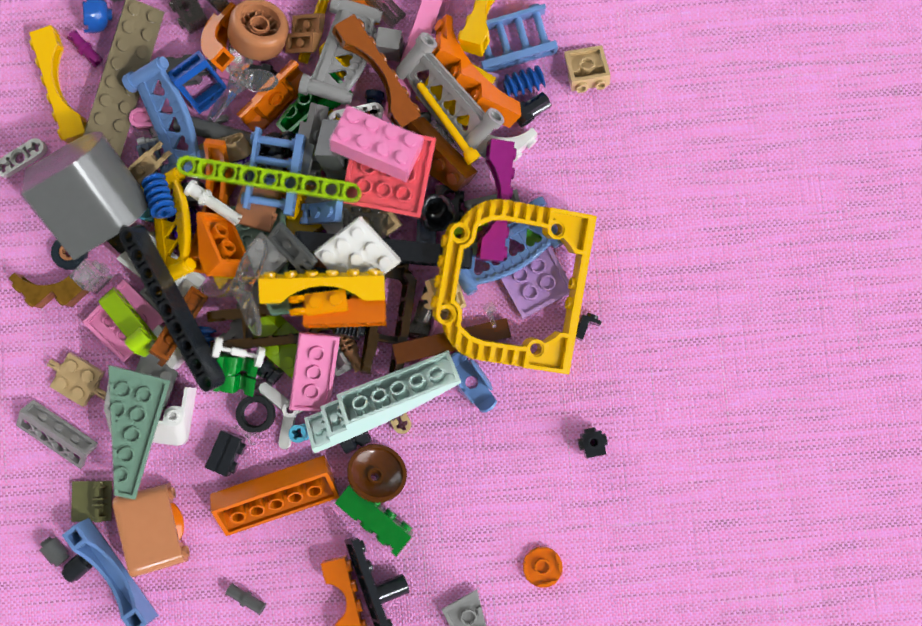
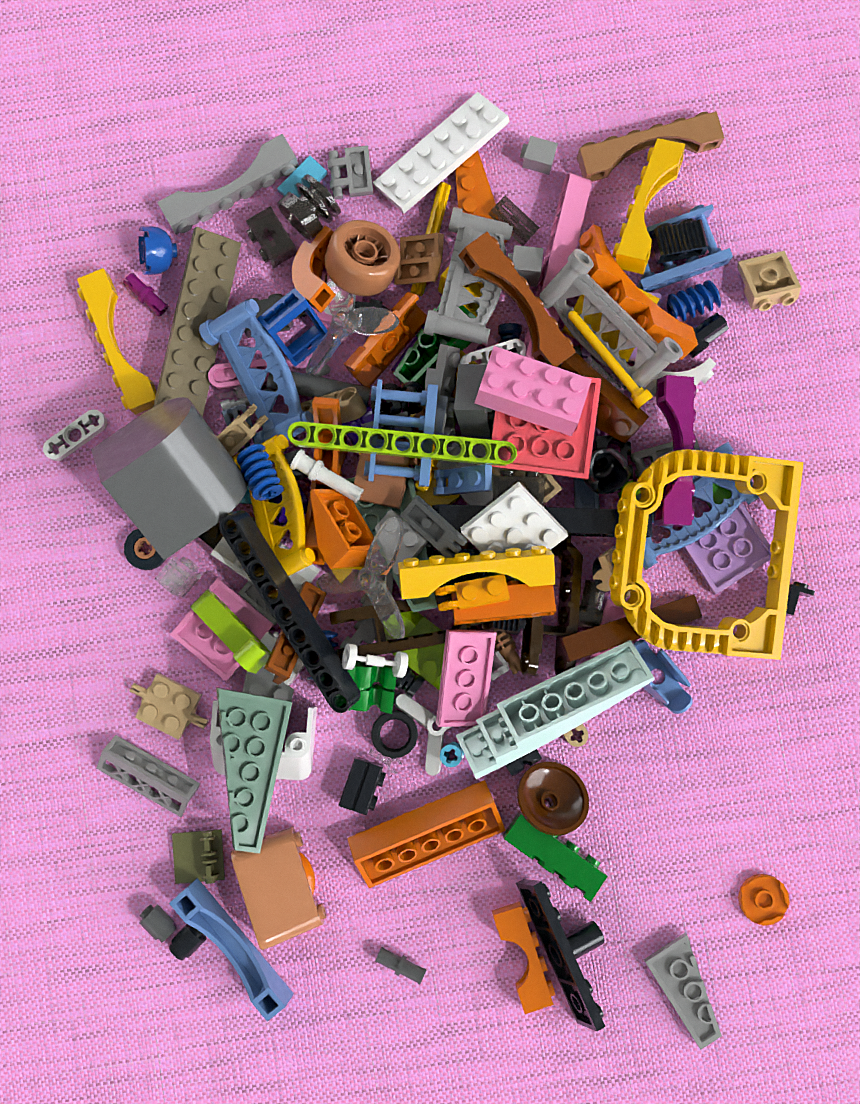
camera: 10 degrees left, 0 degrees up
(65, 292) = (111, 605): pearl gold arch -> none
(489, 308) = (673, 585): clear hand -> none
(514, 31) = (679, 240): none -> black brick
(600, 442) = (815, 742): black brick -> none

